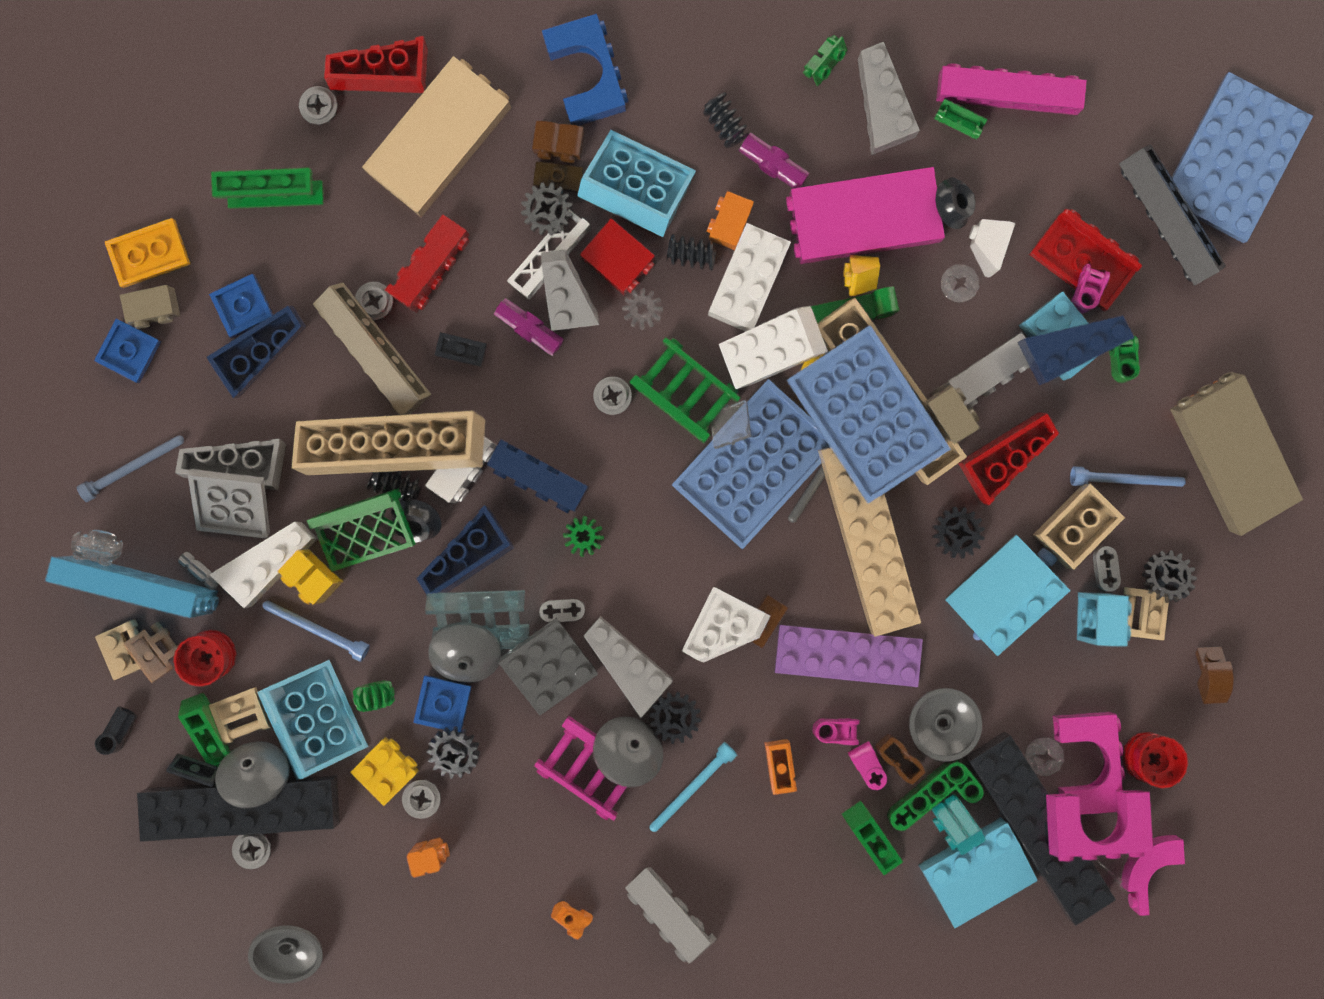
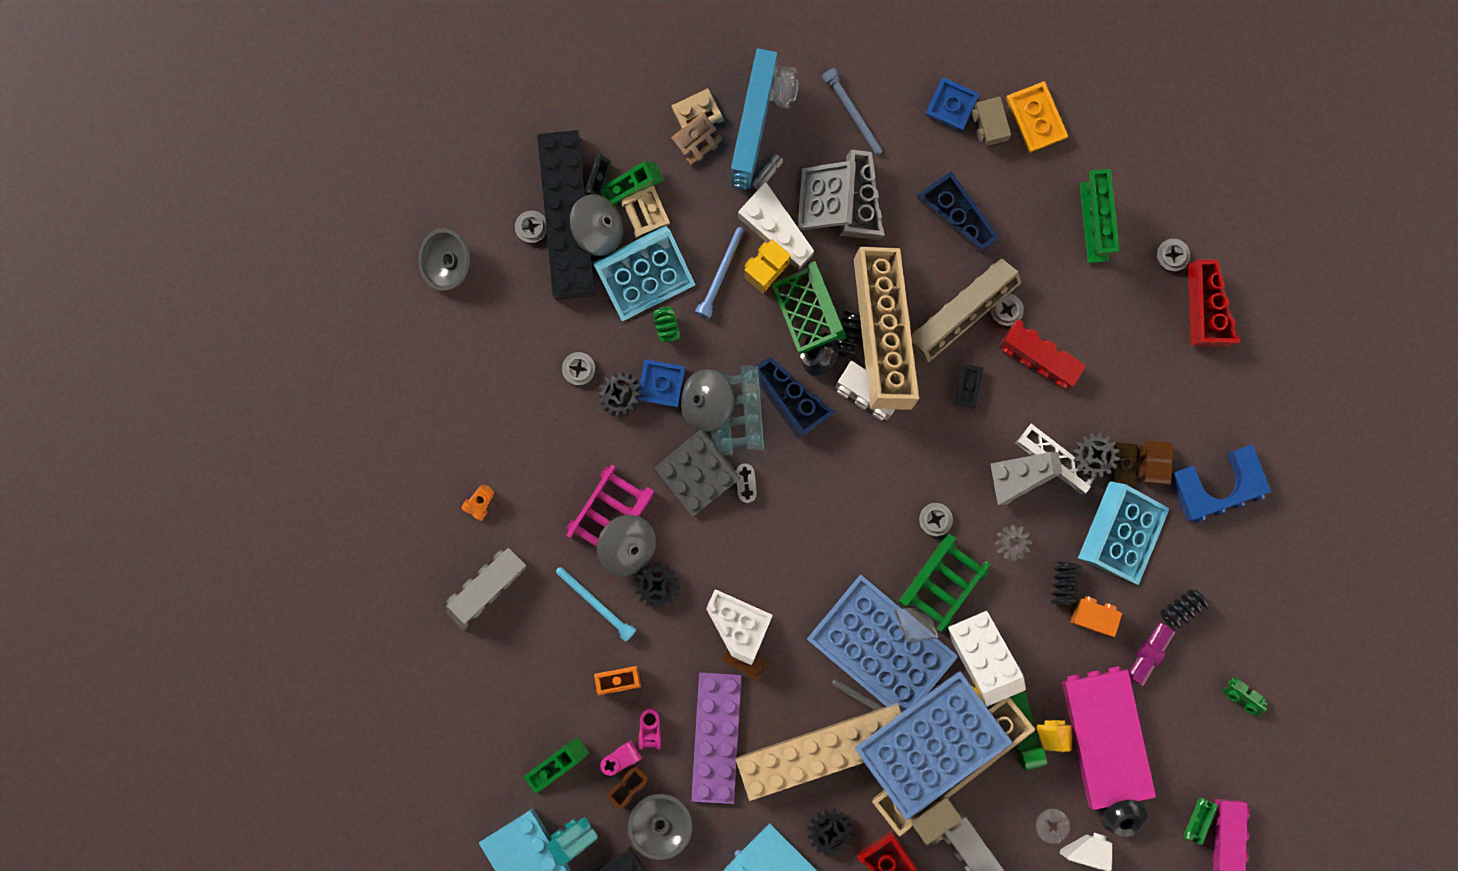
camera: 85 degrees right, 5 degrees down
(117, 730) = (630, 109): black piece -> none
(191, 658) = (694, 169): red wheel -> none
(241, 305) = (996, 197): blue plate -> none
(385, 770) = (602, 337): yellow plate -> none
(427, 857) = (530, 376): orange brick -> none
(438, 135) = (1154, 358): tan brick -> none
(528, 327) = (992, 444): magenta piece -> none
(537, 475) = (863, 456): dark blue wedge -> none
(585, 544) = (819, 498): green gear -> none
(618, 257) = (1057, 519): red brick -> none
(631, 669) = (697, 545): light grey wedge -> none
(749, 278) = (1046, 635): white brick -> none
(885, 103) = (1208, 752): light grey wedge -> none
(930, 798) = (593, 816): green beam -> none

